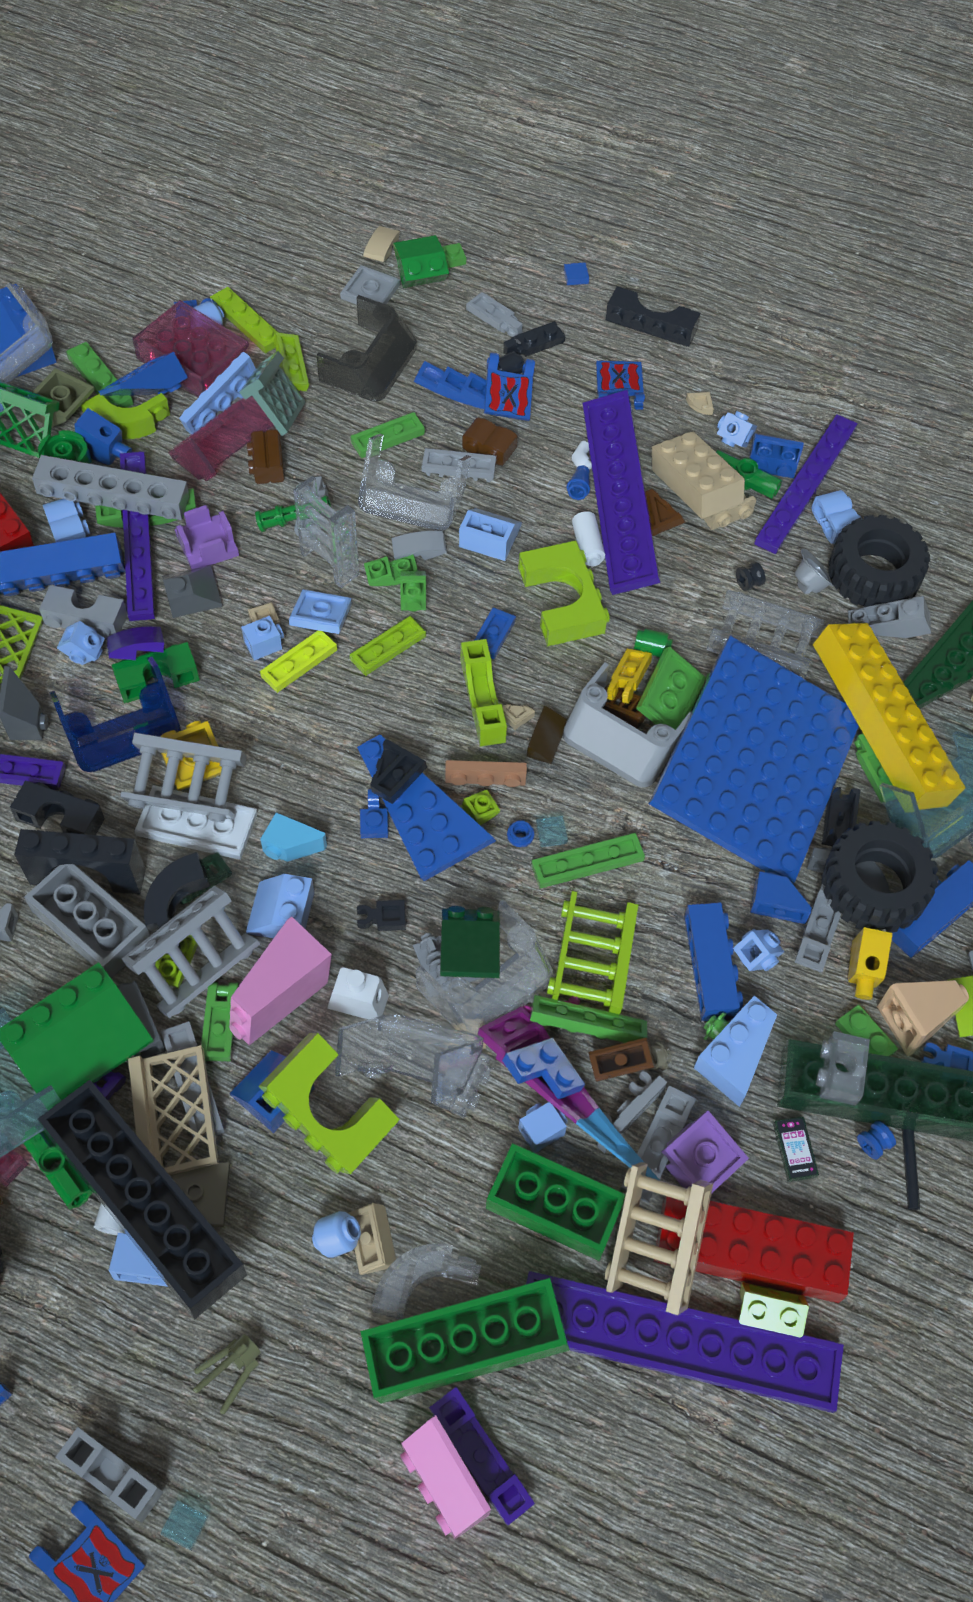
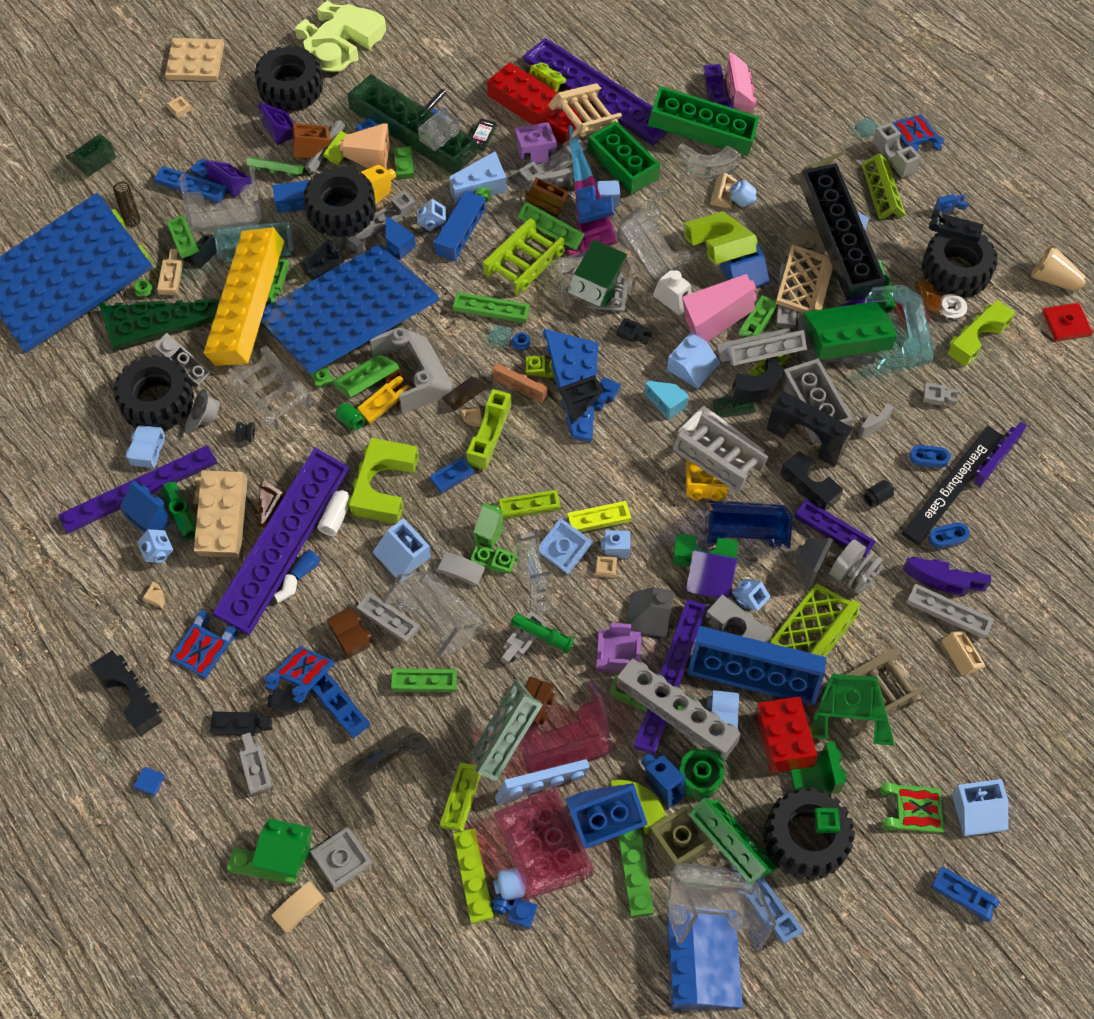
camera: 150 degrees left, 0 degrees up
(102, 1386) = (891, 193): none -> lime fence

